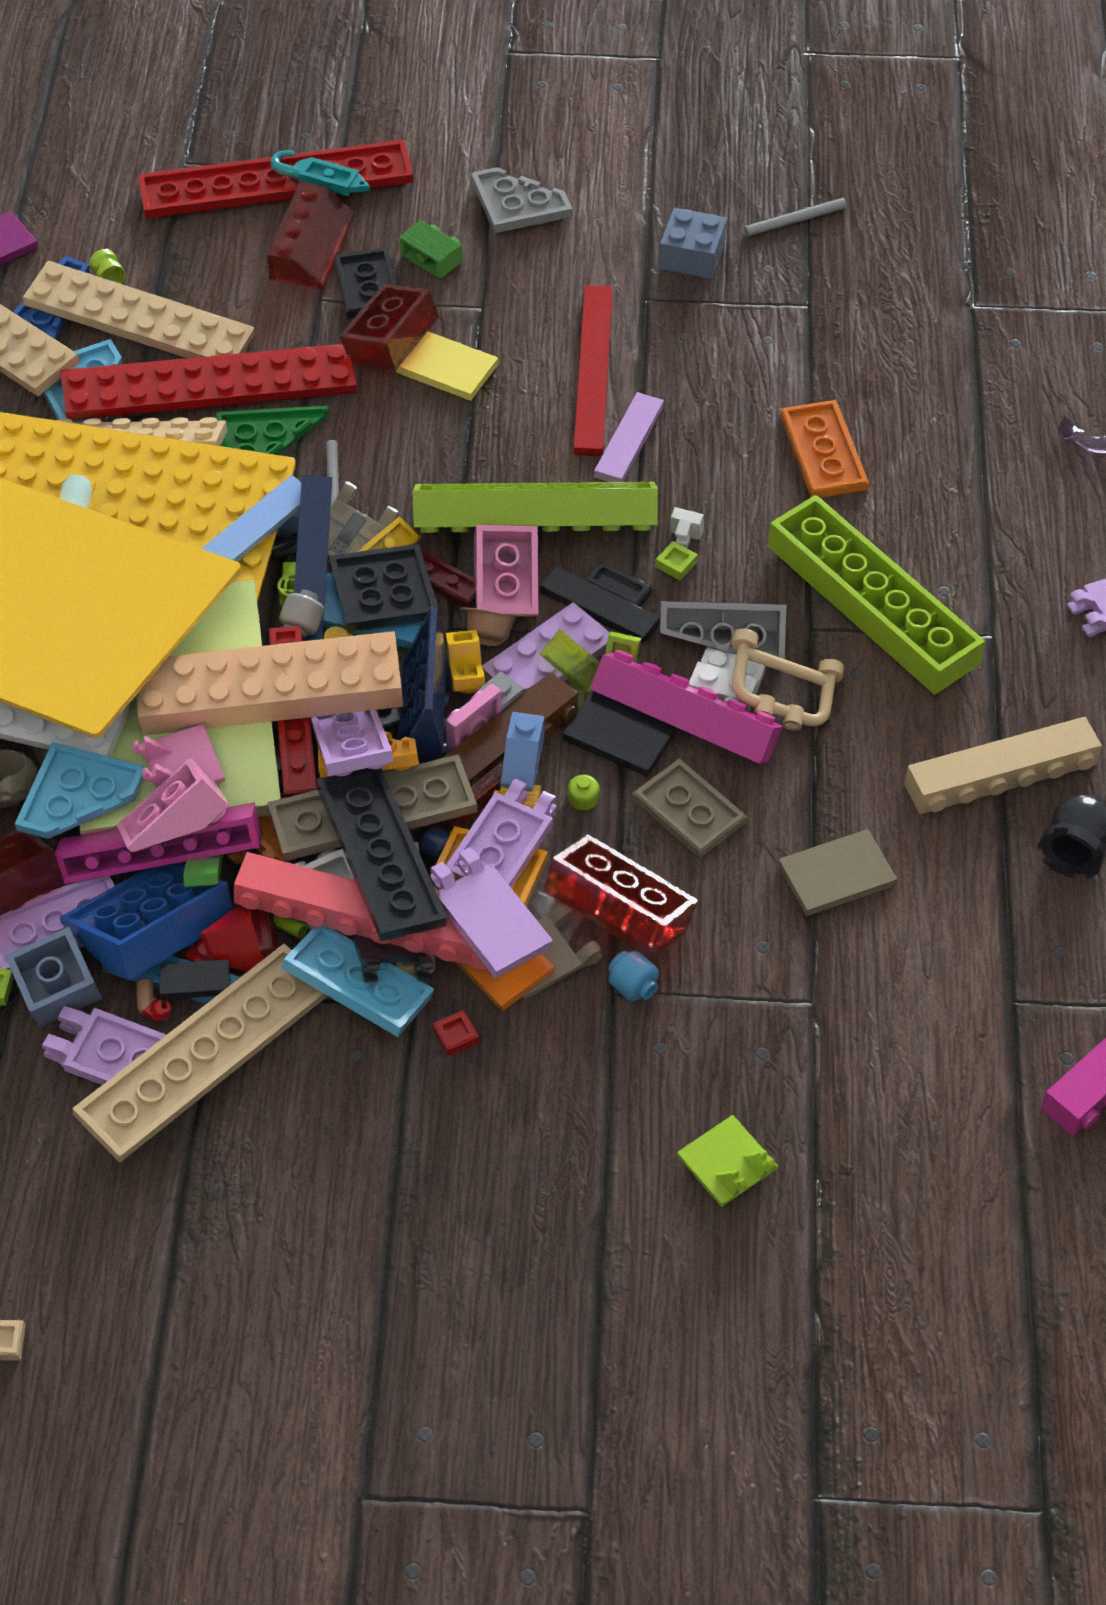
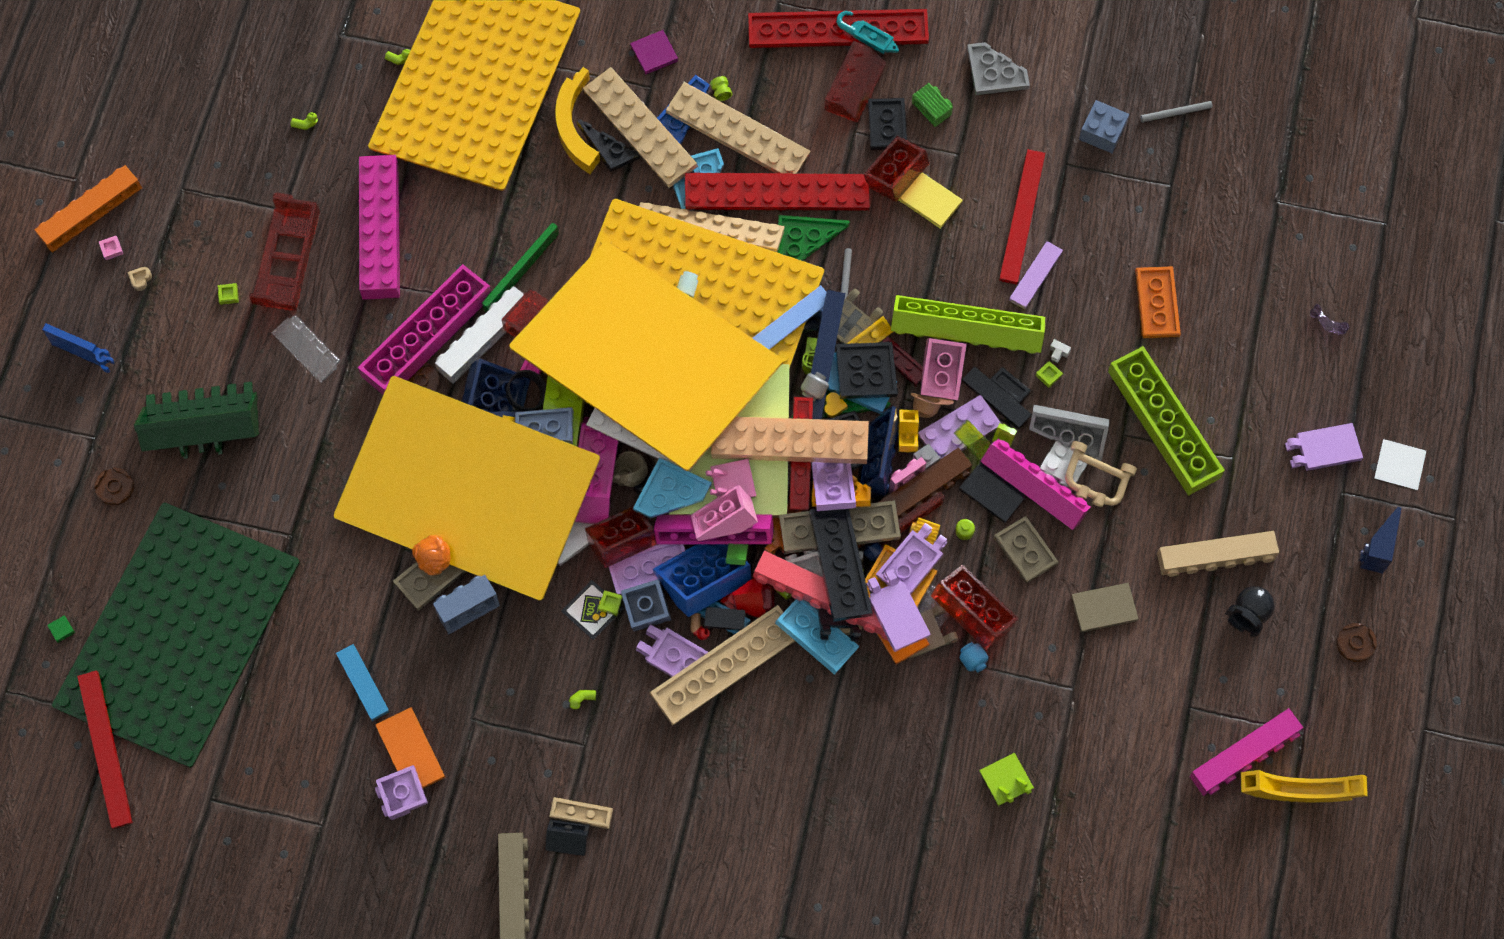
camera: 10 degrees right, 15 degrees up
(455, 1033) = (867, 674): red tile -> none
(522, 749) = (932, 504): medium blue slope -> none

